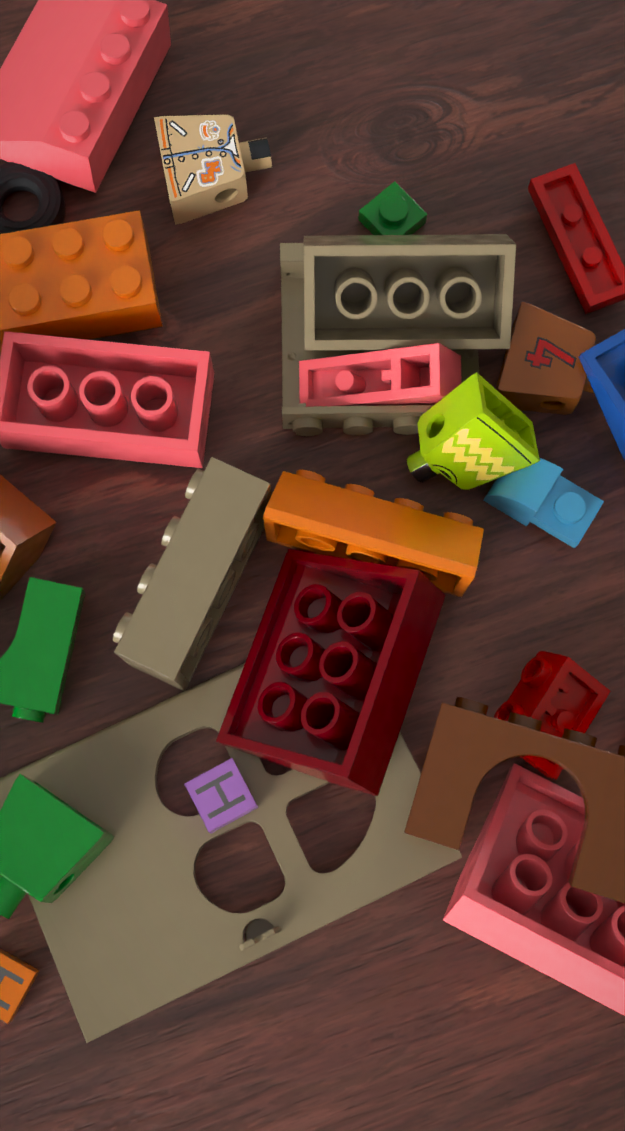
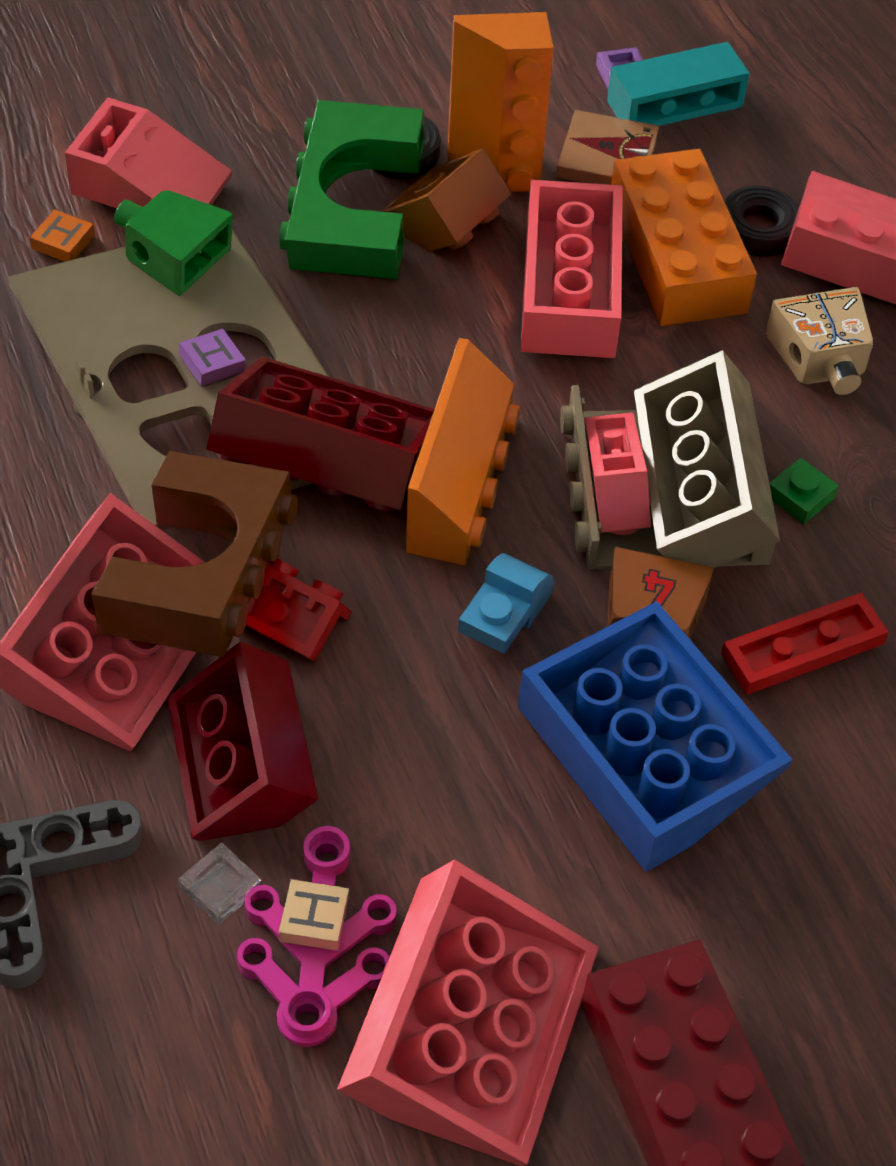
camera: 85 degrees right, 25 degrees down
(195, 574) = (400, 319): dark tan brick -> none
(473, 437) = (562, 525): lime torso -> none

